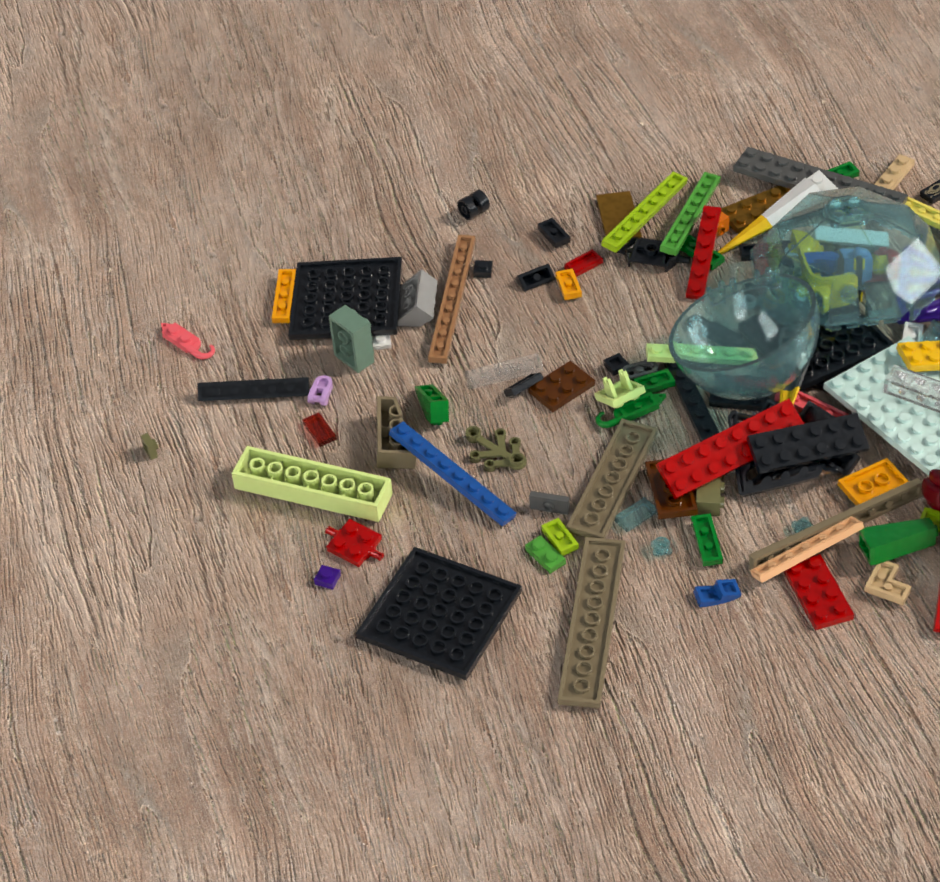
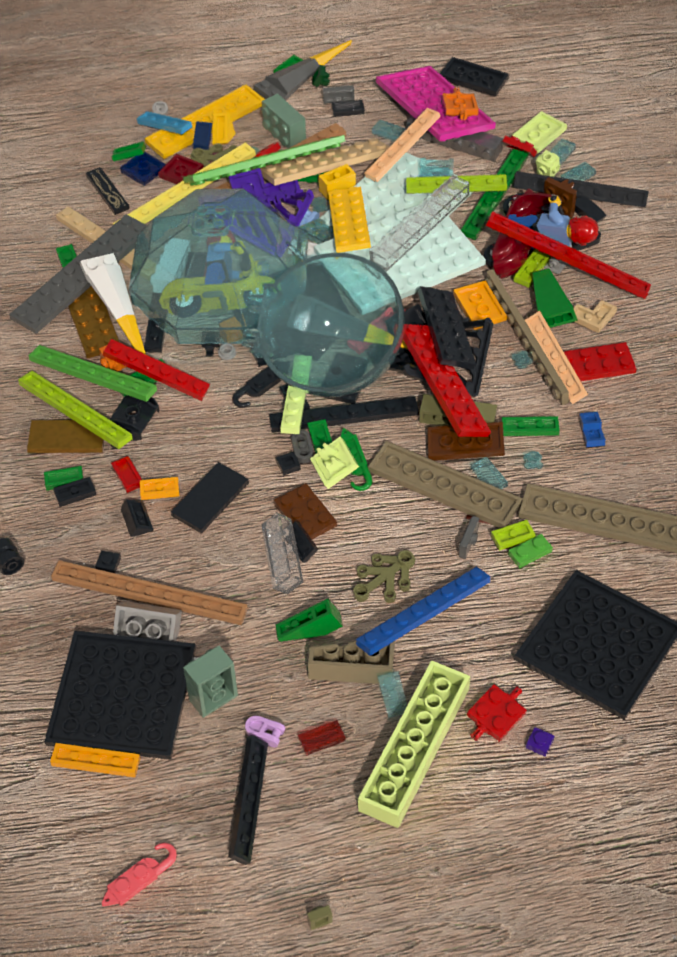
camera: 85 degrees left, 5 degrees up
(363, 459) = (392, 693): none -> clear light blue plate
(567, 320) = (209, 497): none -> black tile
(571, 225) = (62, 477): none -> green tile

